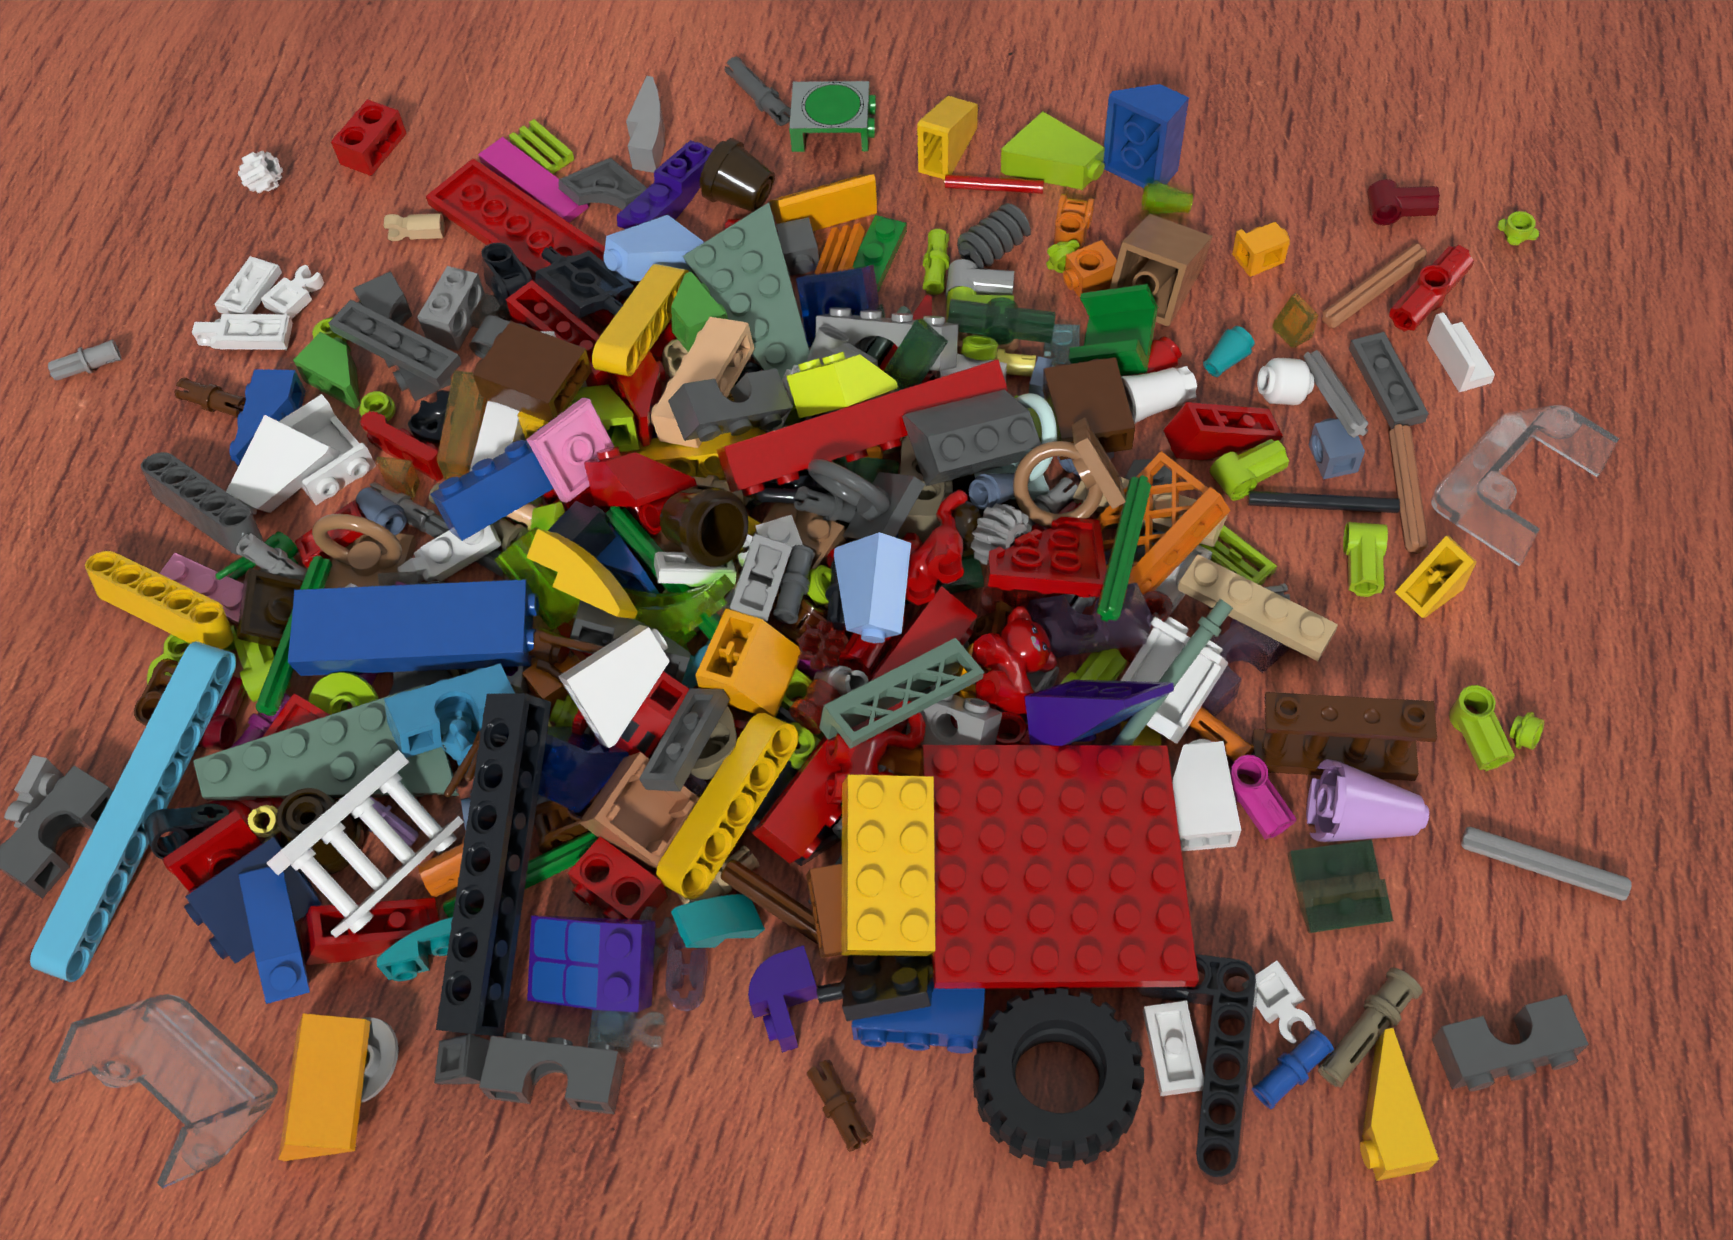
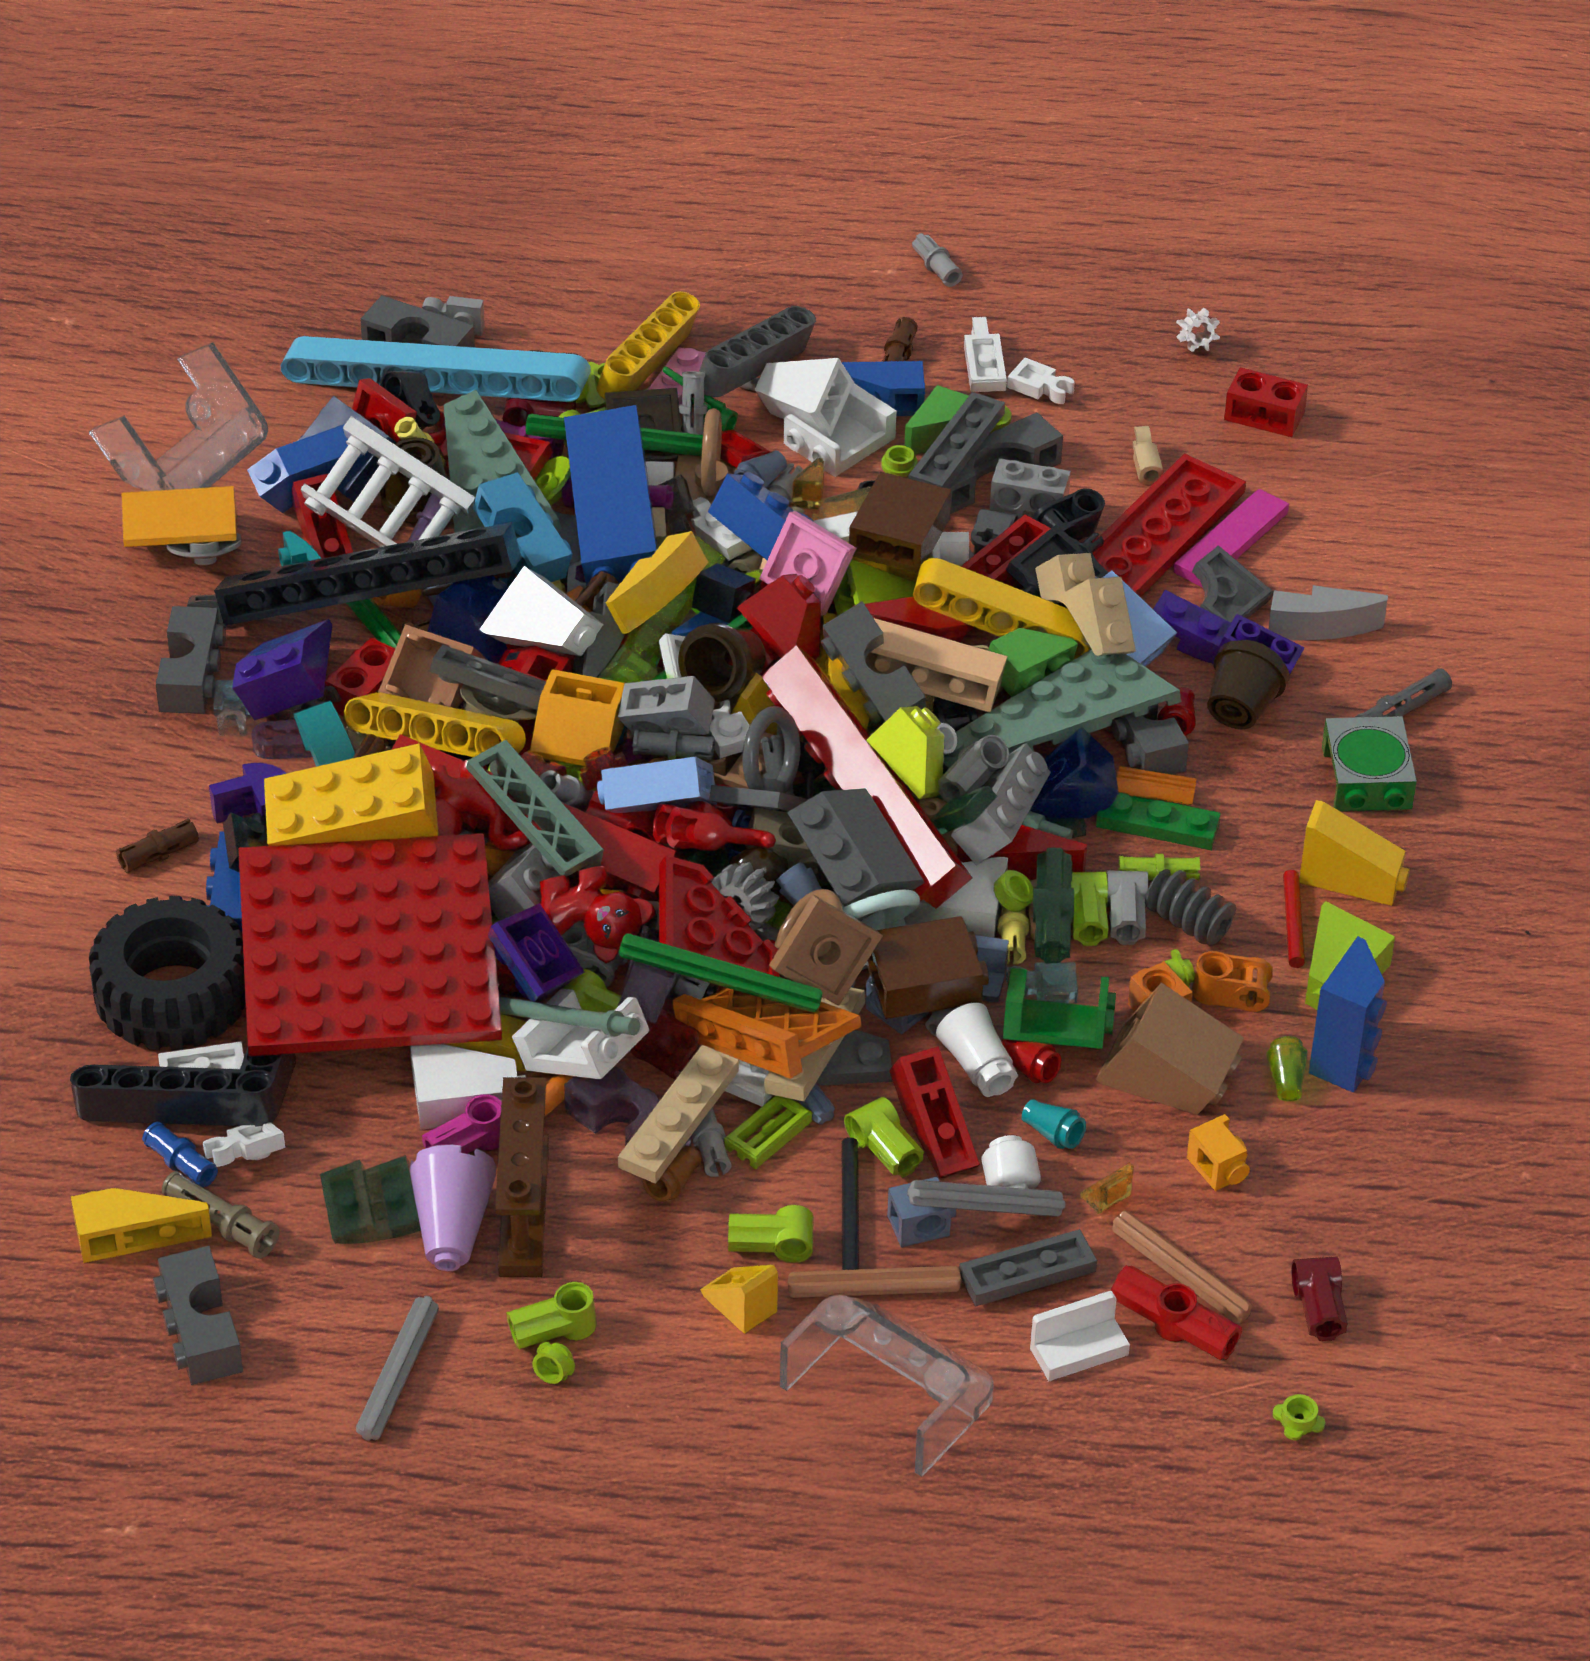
camera: 80 degrees right, 15 degrees down
(248, 287) = (1045, 349): white plate -> none
(401, 444) = (858, 469): red hinge -> none
(531, 134) = (1278, 535): lime tile -> none
(666, 240) = (1094, 602): none -> tan arch
(829, 203) = (1231, 767): light orange slope -> none

